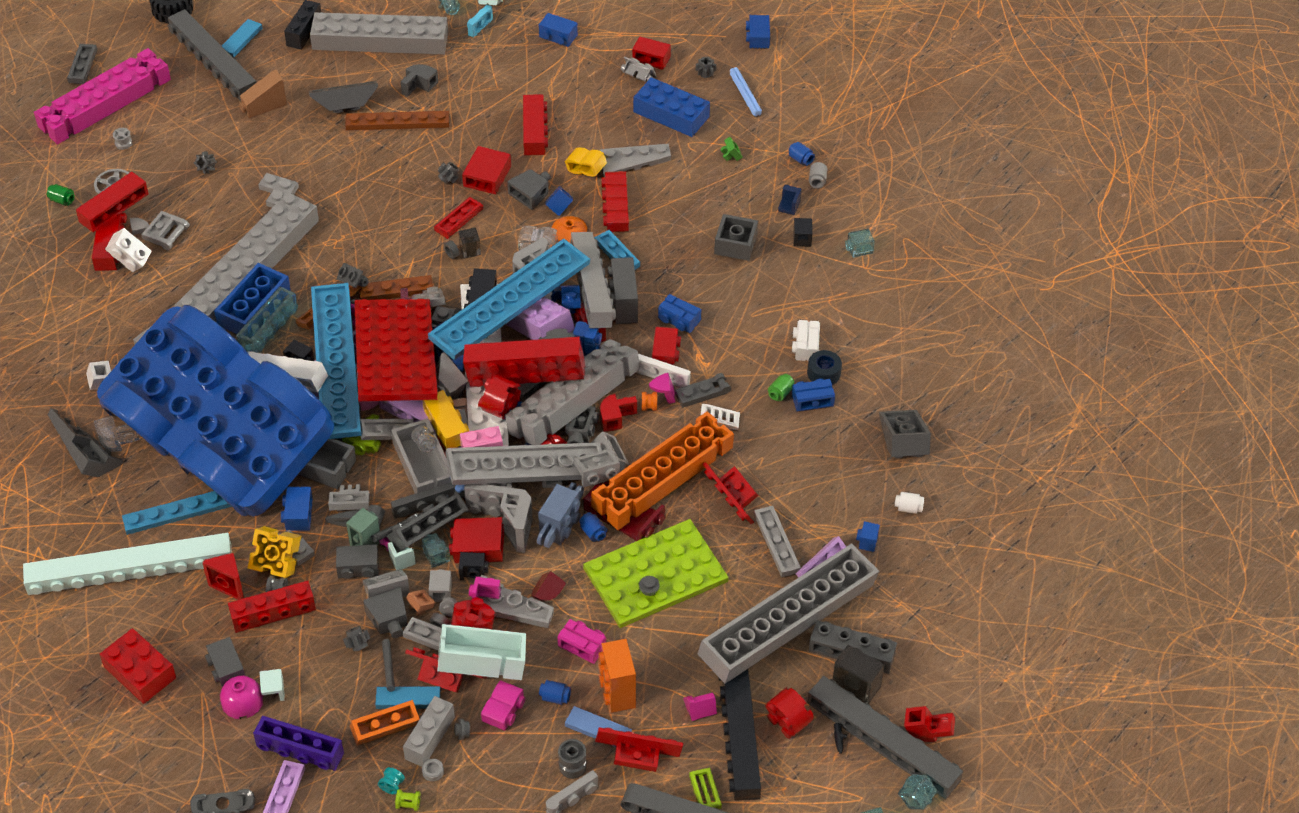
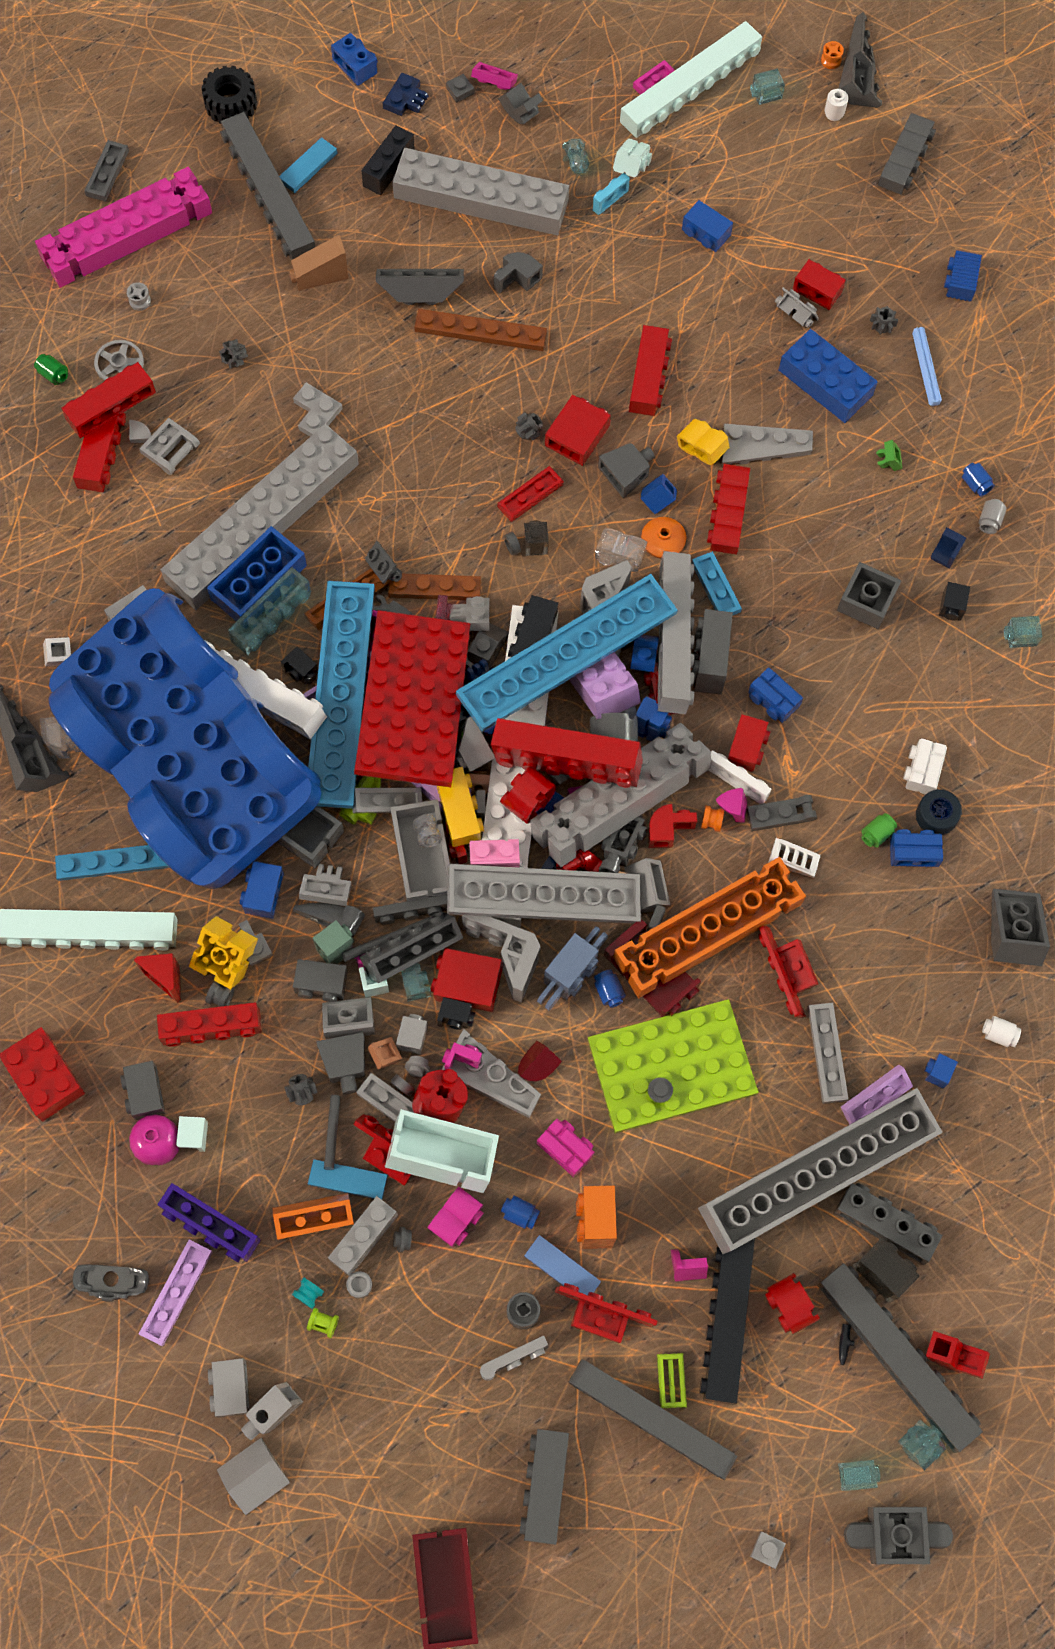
camera: 10 degrees right, 20 degrees up
(128, 250) = (118, 474): white brick -> none
(597, 467) = (629, 914): light grey bracket -> none

